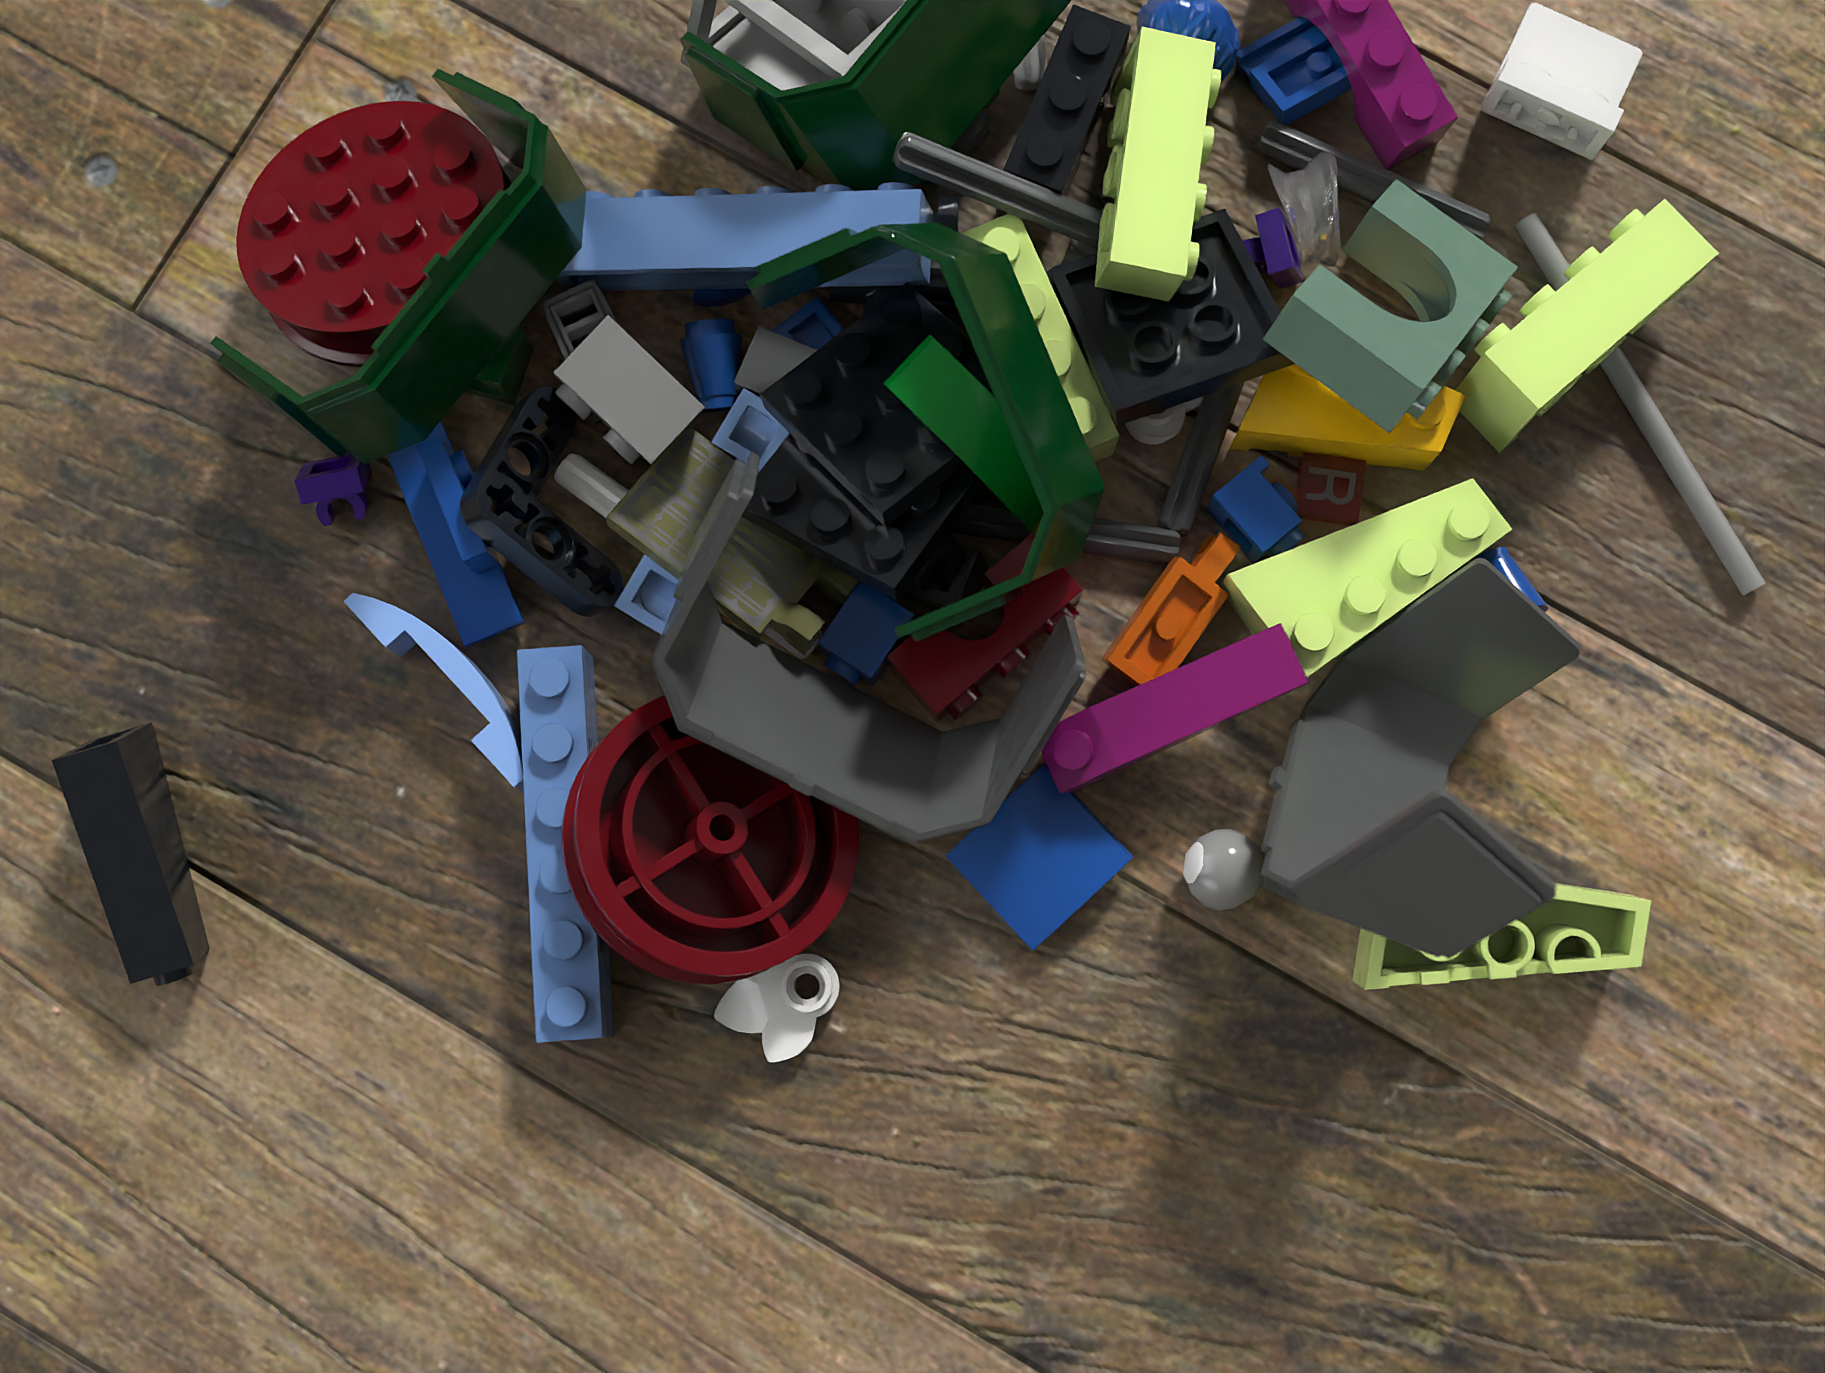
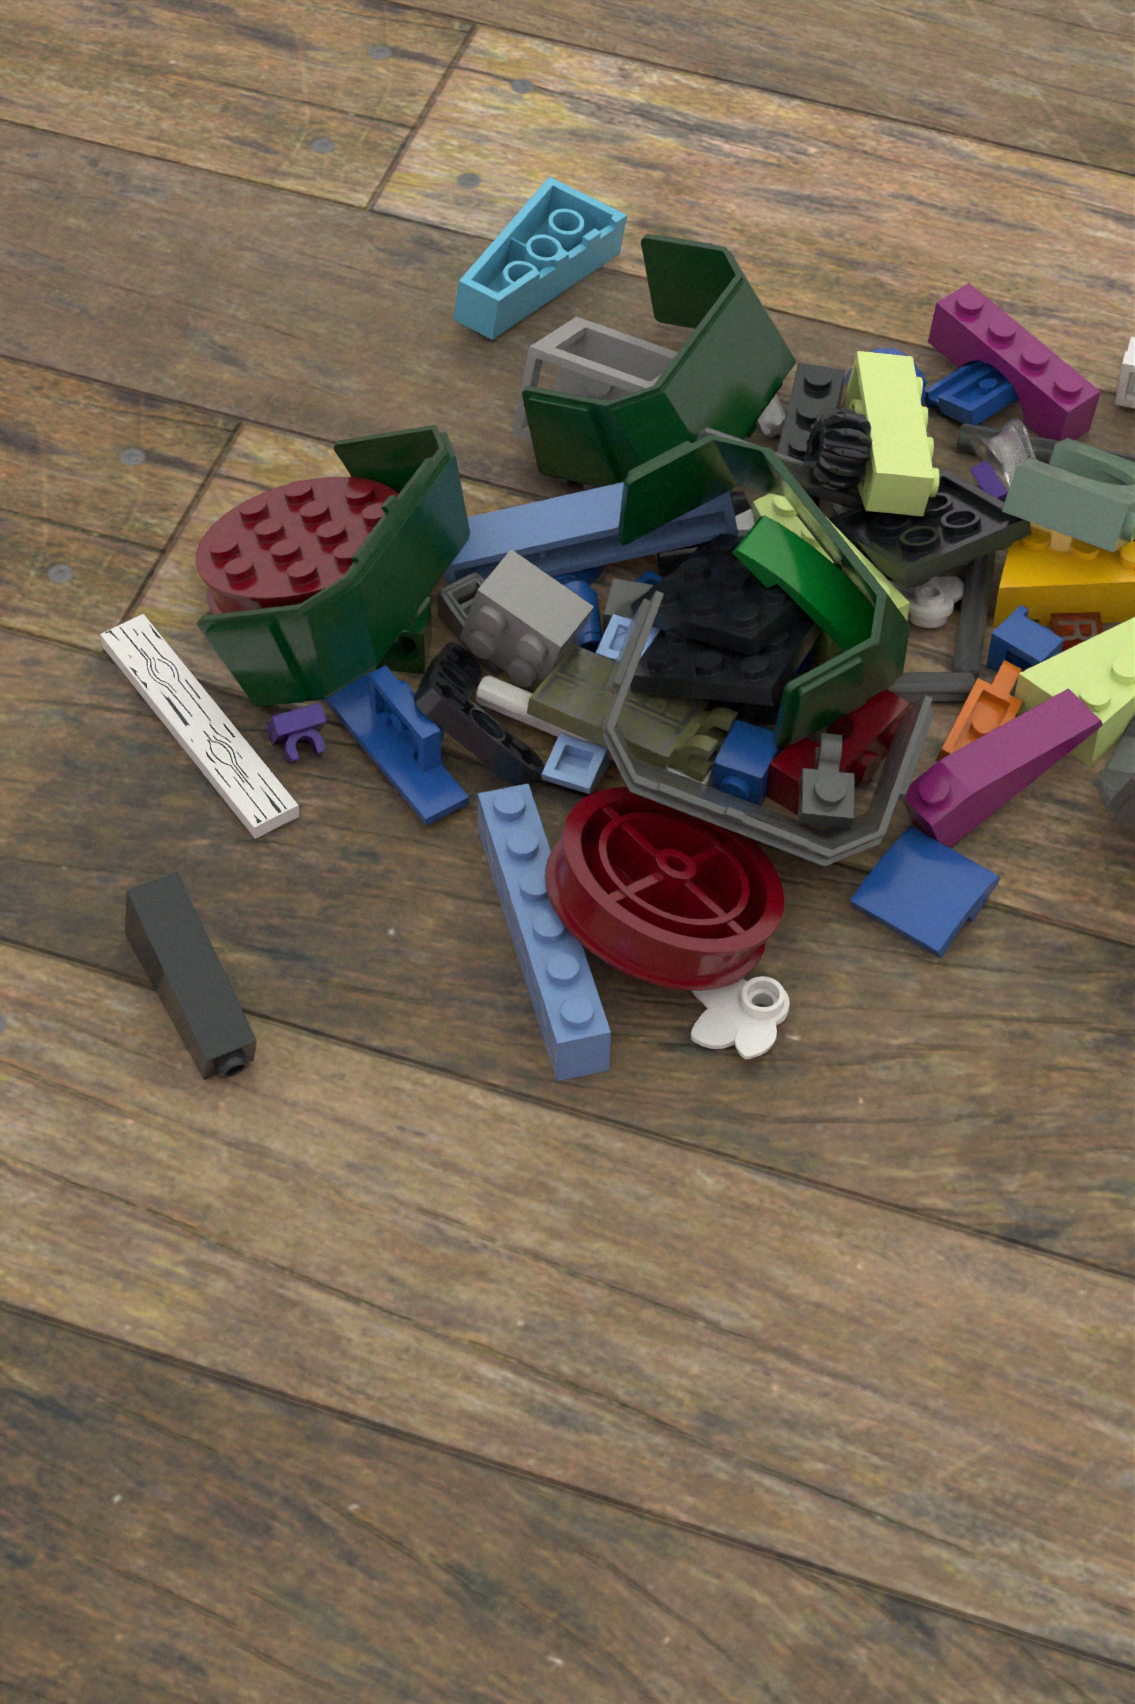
camera: 15 degrees left, 30 degrees down
(223, 448) = (200, 726): none -> white tile
(401, 631) = (374, 810): light blue slope -> none
(941, 723) = (824, 792): none -> dark grey plate
(1076, 194) = (837, 449): none -> black gear
(1223, 869) = (1072, 869): light grey piece -> none

